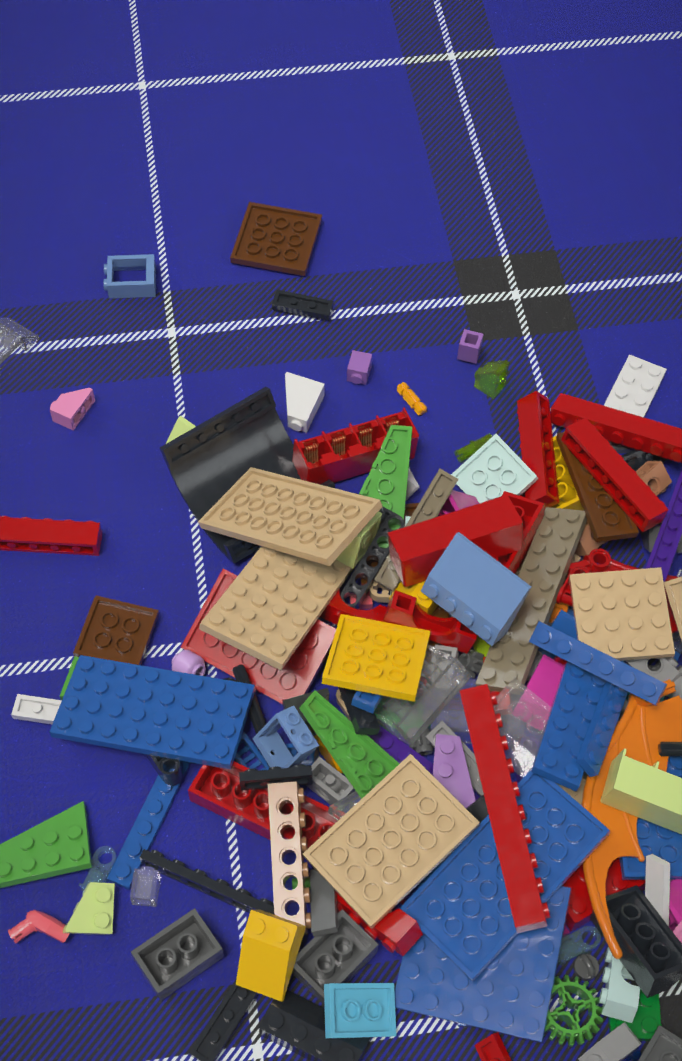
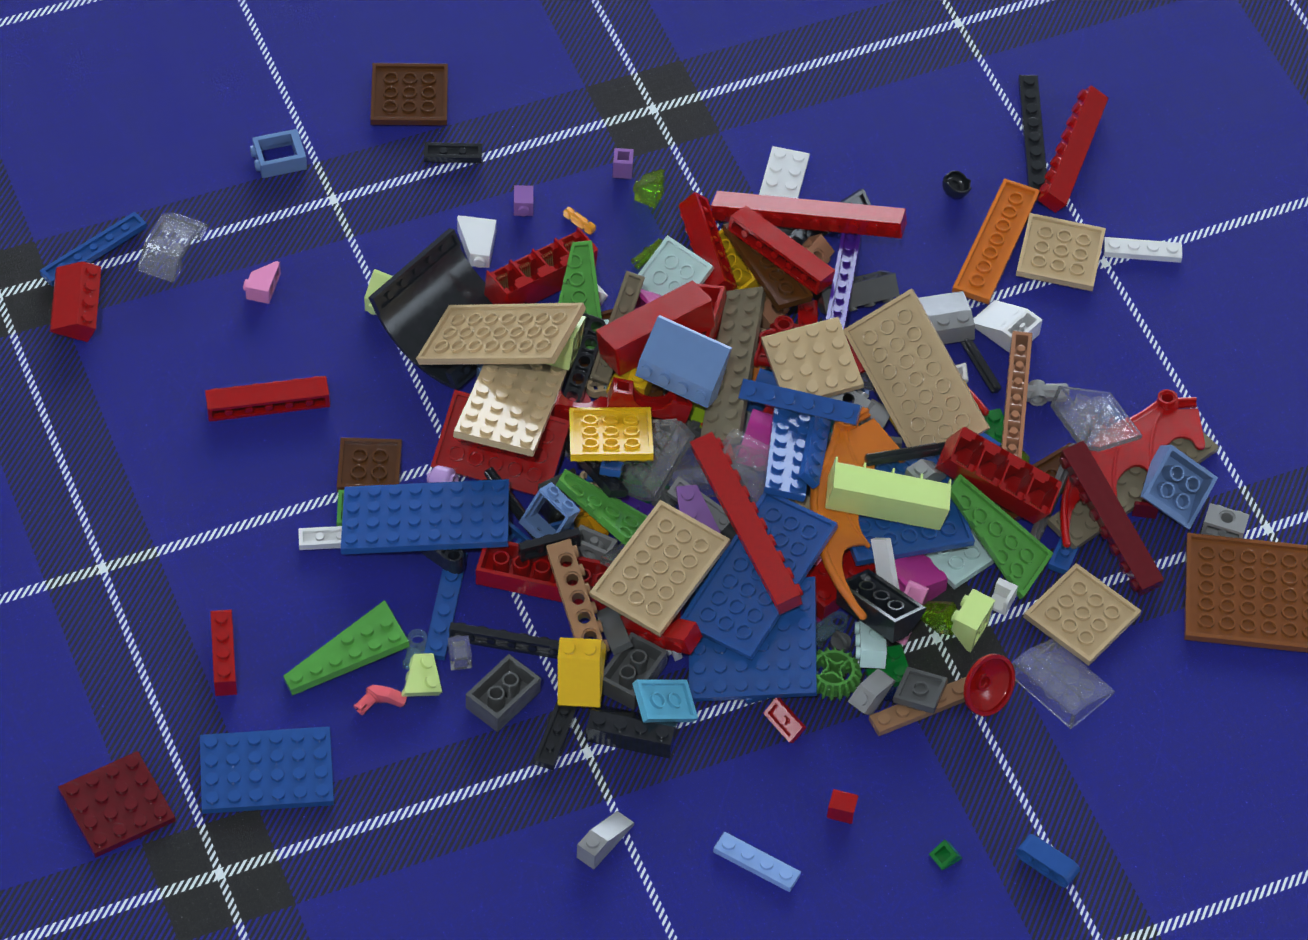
camera: 15 degrees left, 5 degrees down
(628, 550) = (807, 313): none -> red plate

